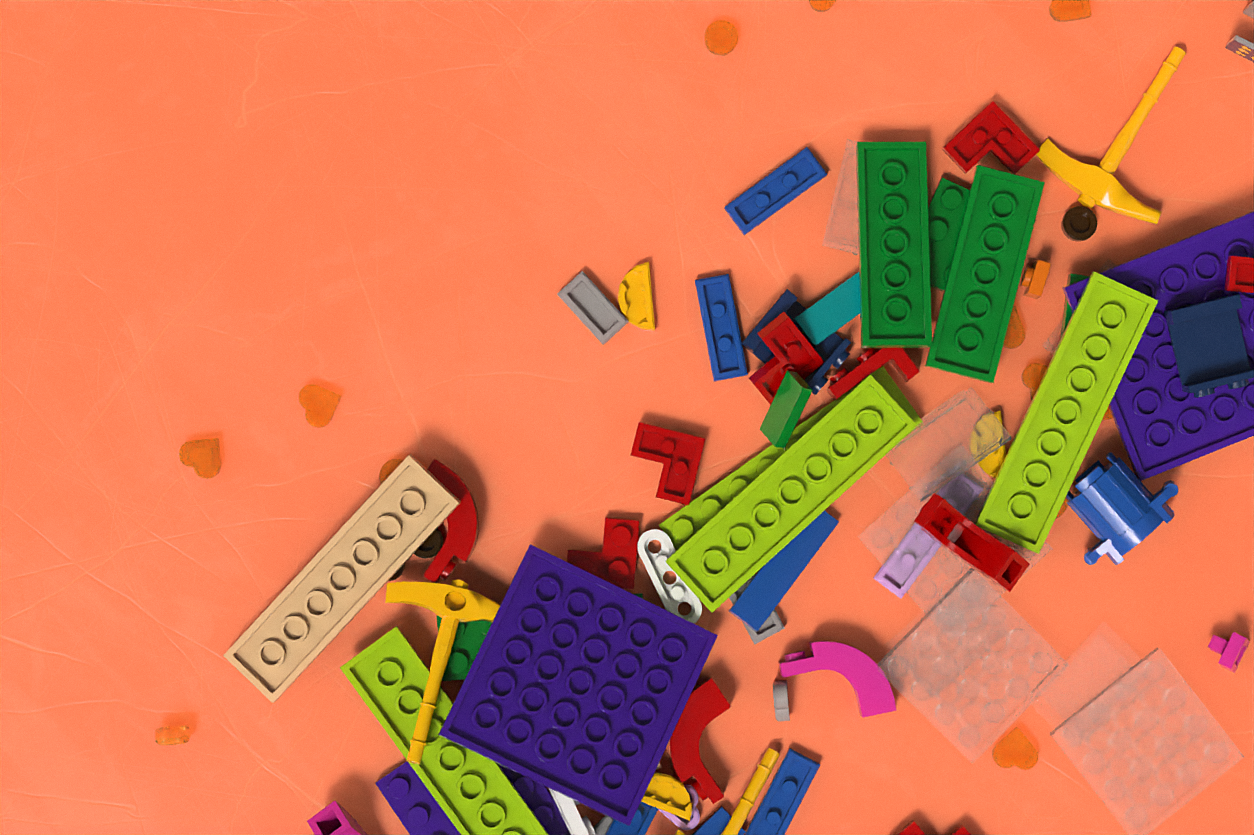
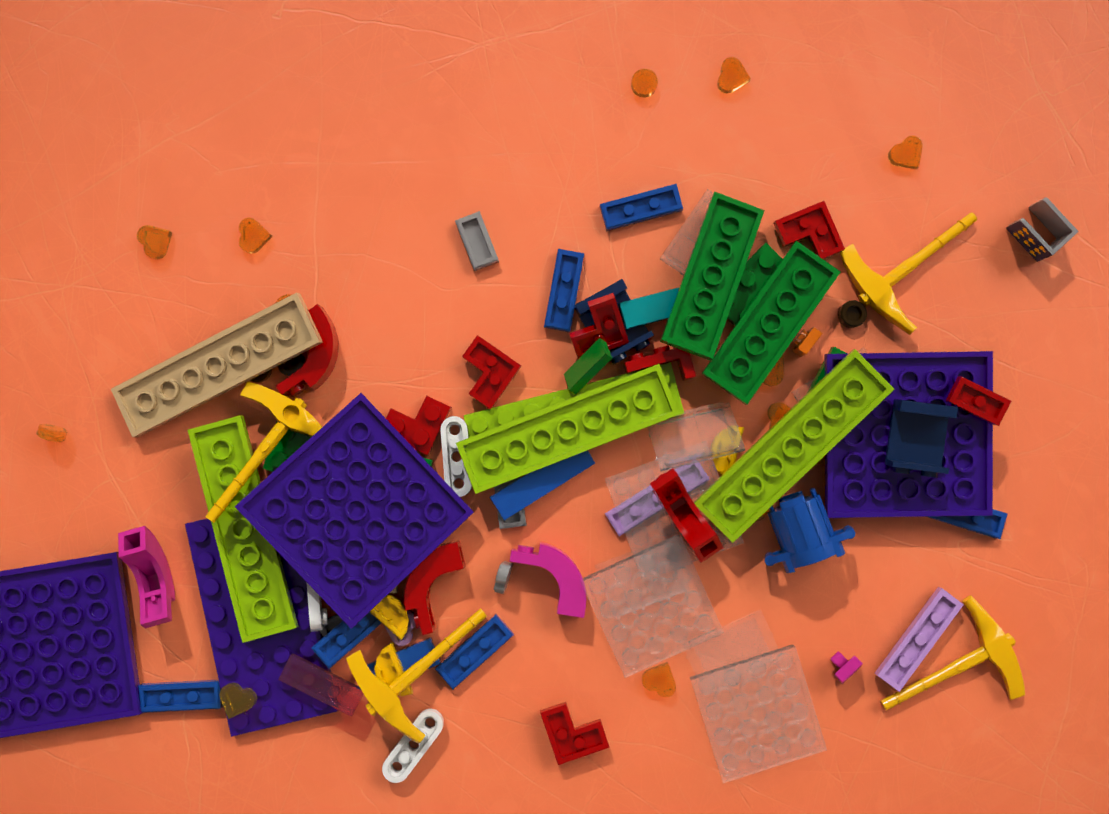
camera: 15 degrees right, 0 degrees up
(636, 297) = (511, 245): yellow tile -> none

